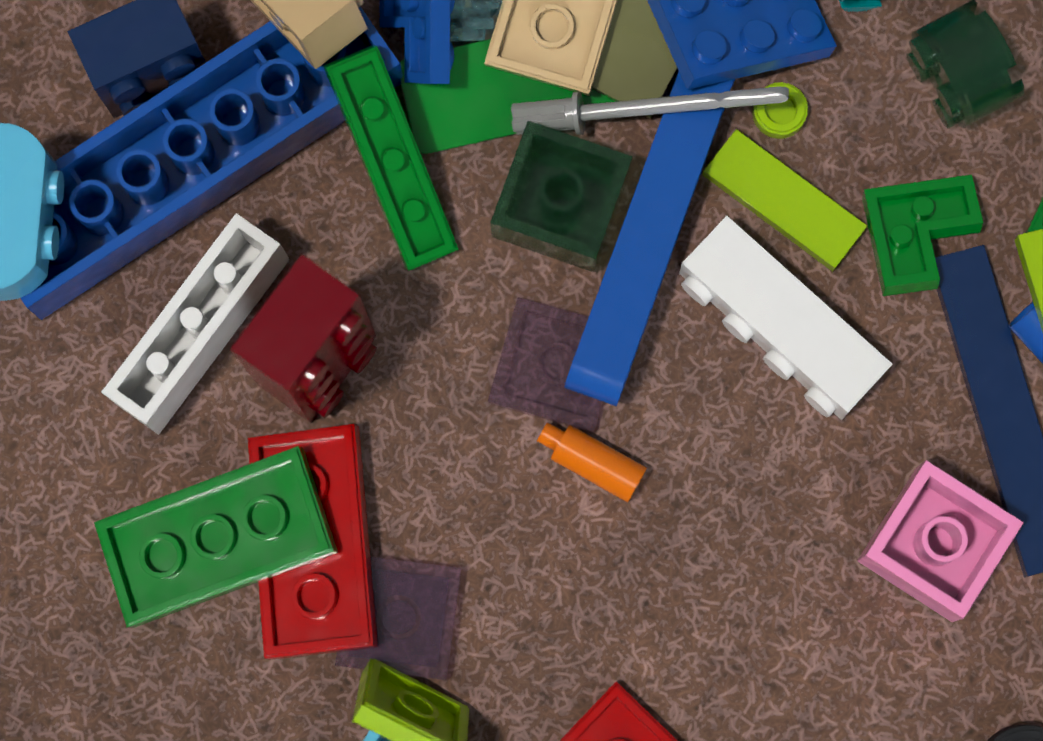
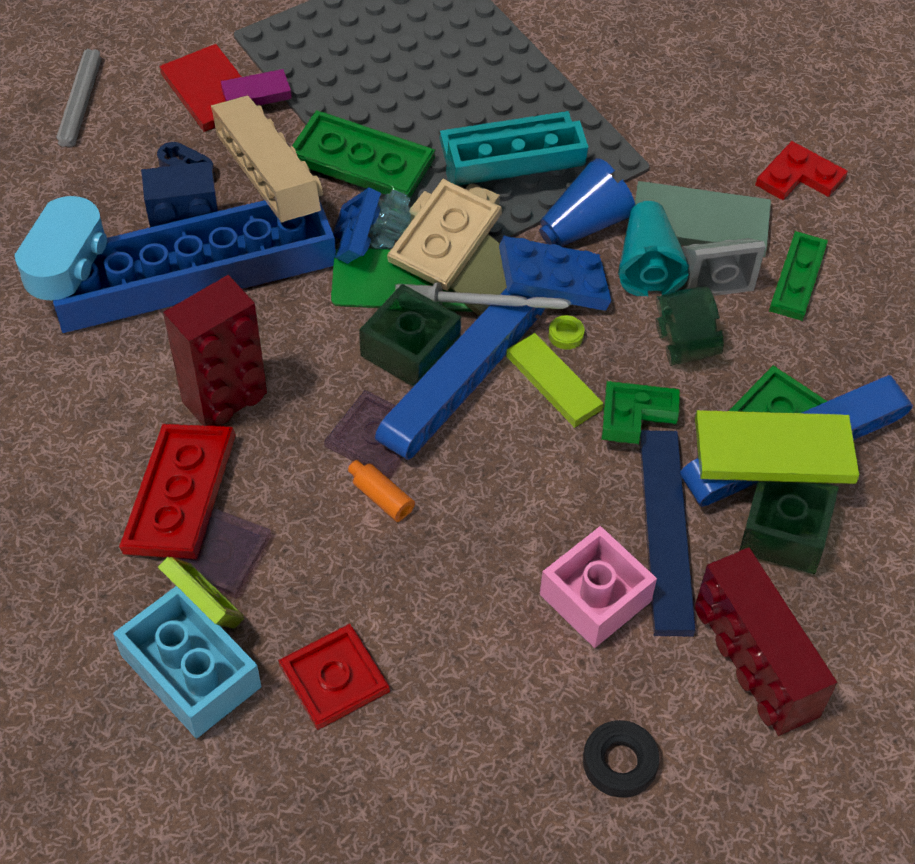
camera: 10 degrees right, 25 degrees down
(196, 324) = (129, 363): white brick -> none
(215, 537) = (117, 471): green tile -> none
(391, 157) = (311, 289): green tile -> none
(783, 318) = (533, 439): white brick -> none

